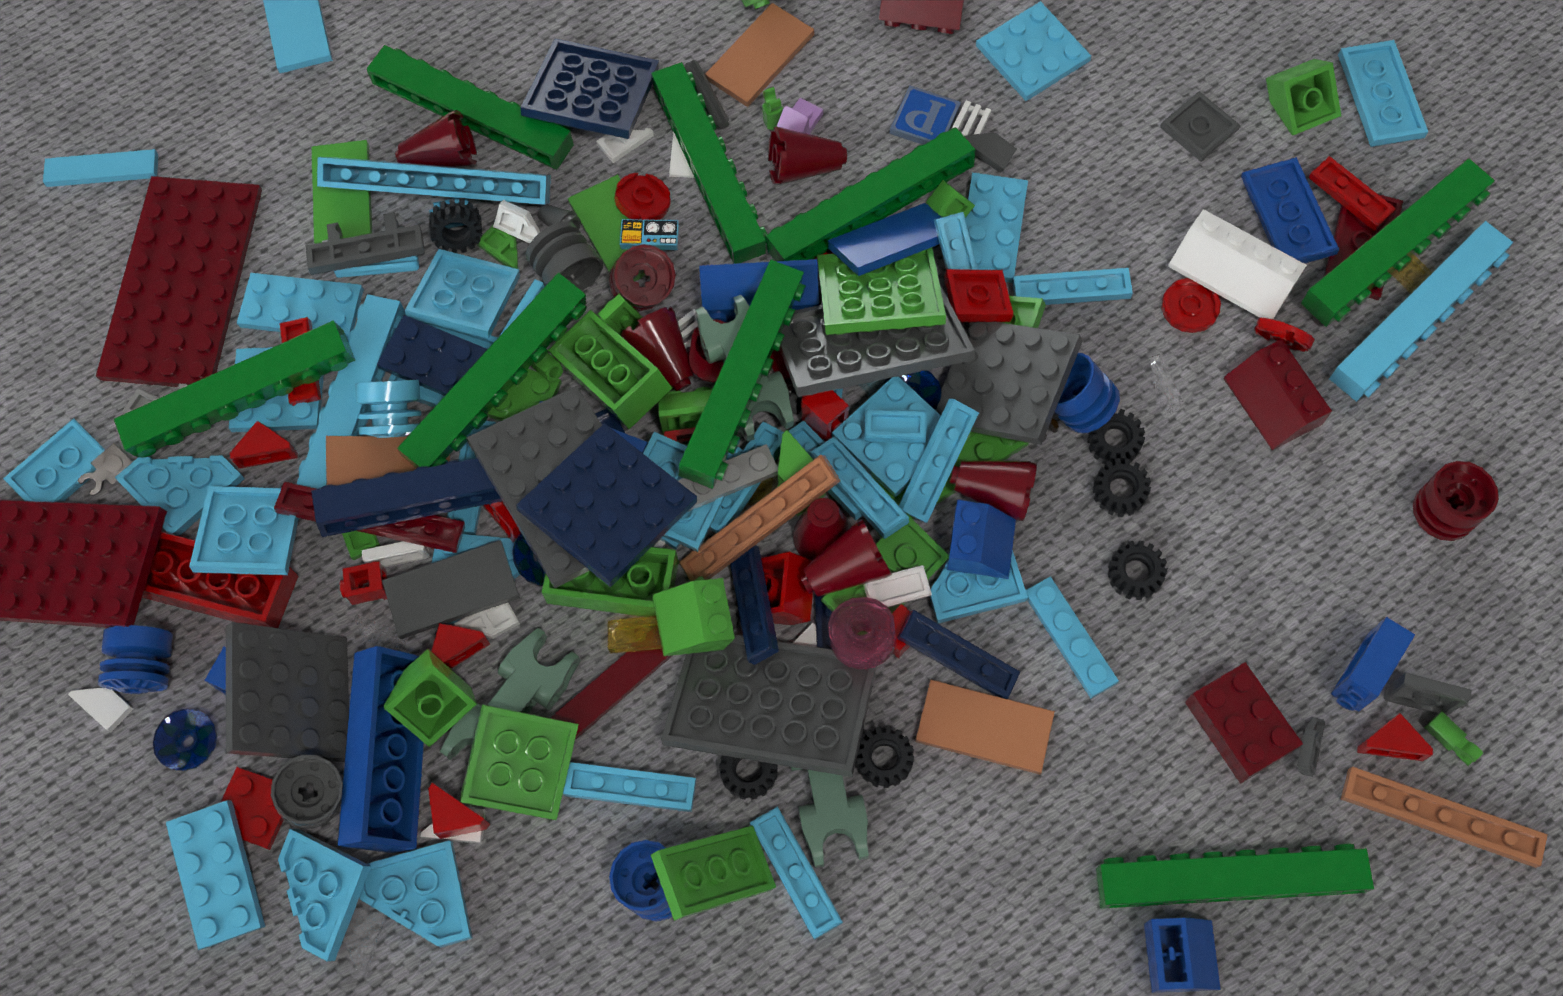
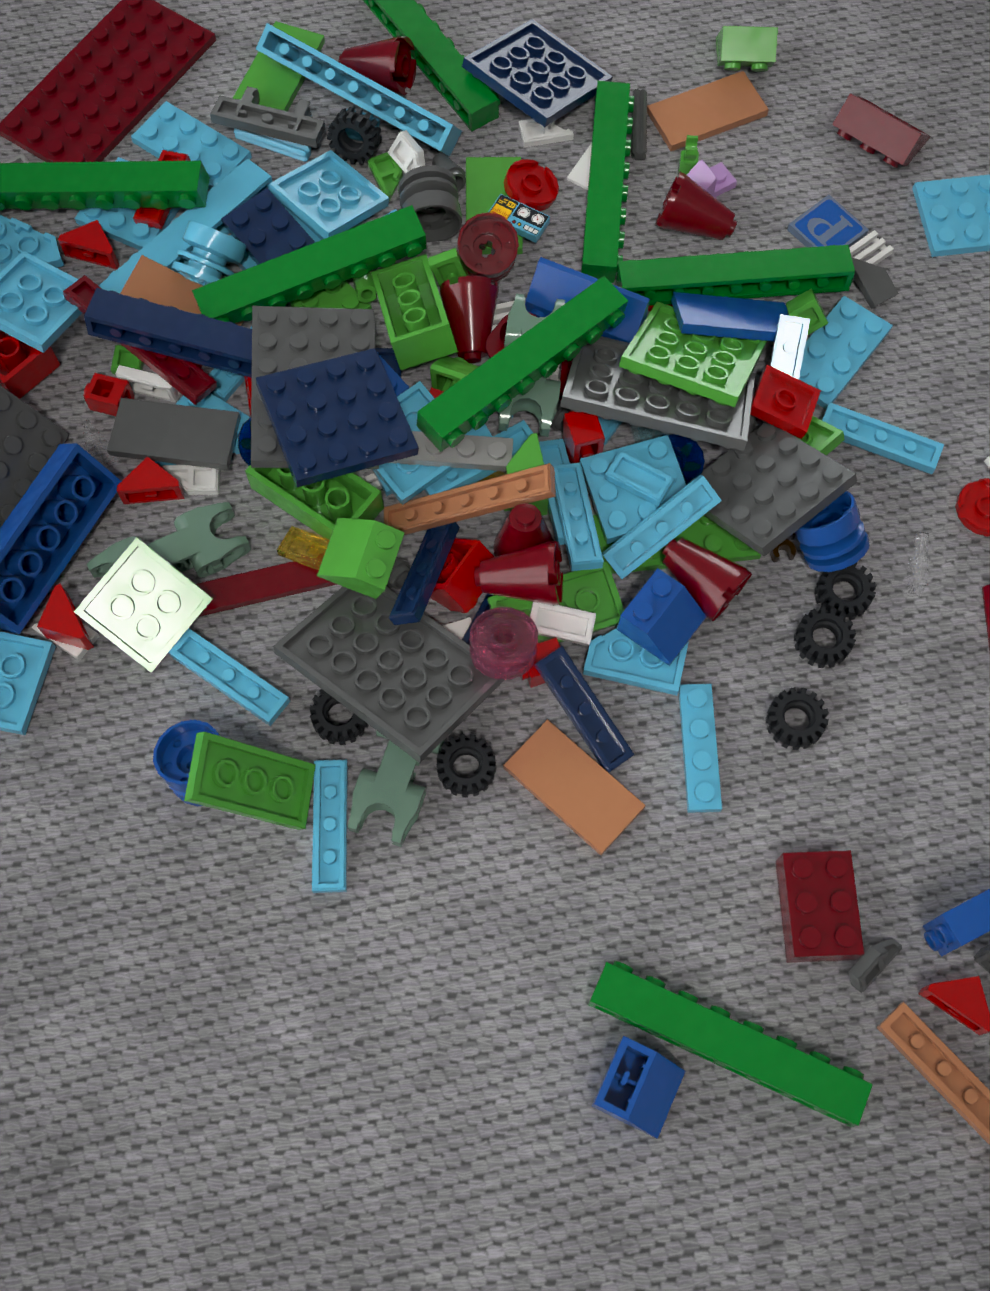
camera: 25 degrees right, 0 degrees up
(429, 698) = (100, 512): bright green slope -> none

